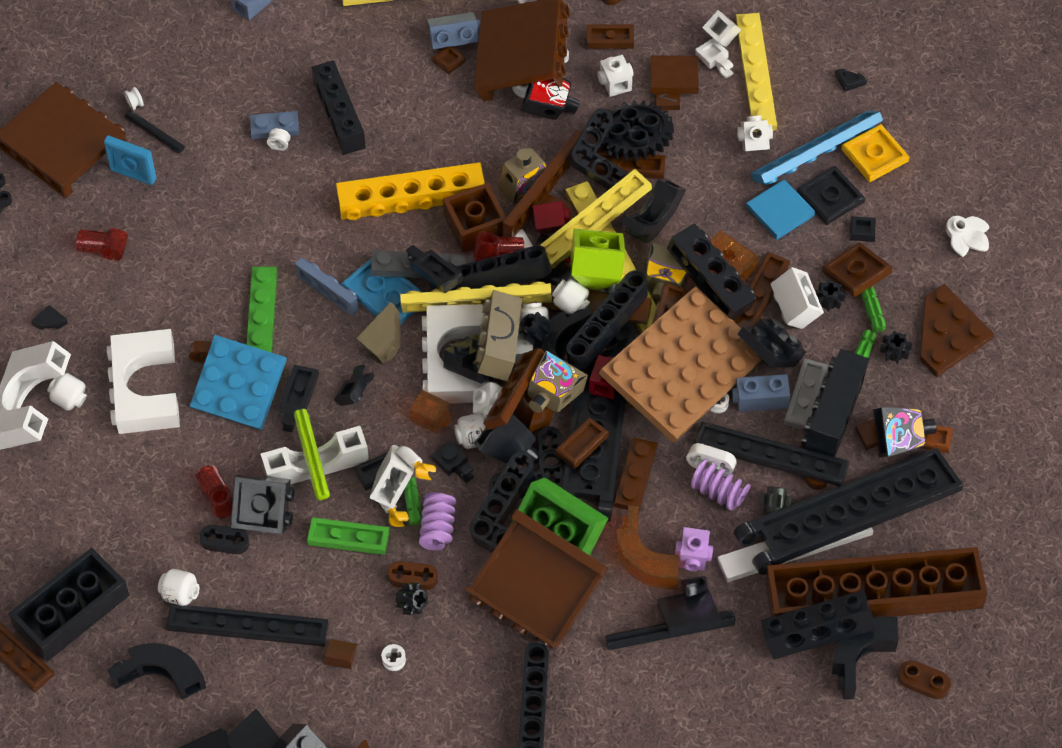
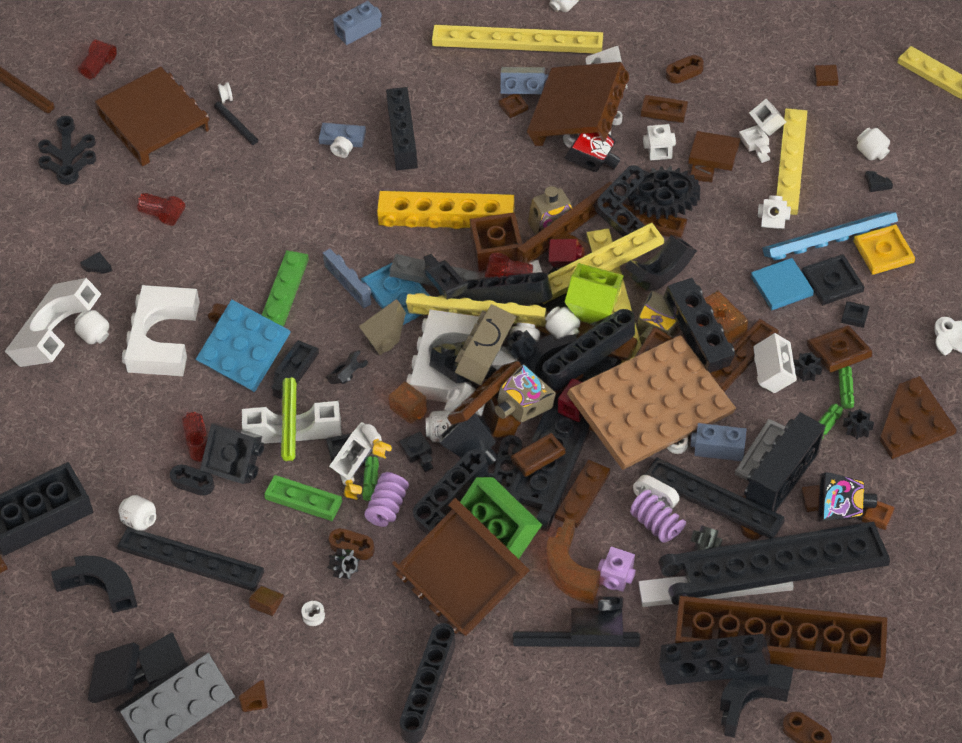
camera: 15 degrees right, 5 degrees down
(130, 160) = (204, 141): dark azure tile -> none
(773, 343) = (741, 399): black plate -> none
(836, 39) = (873, 144): none -> white head

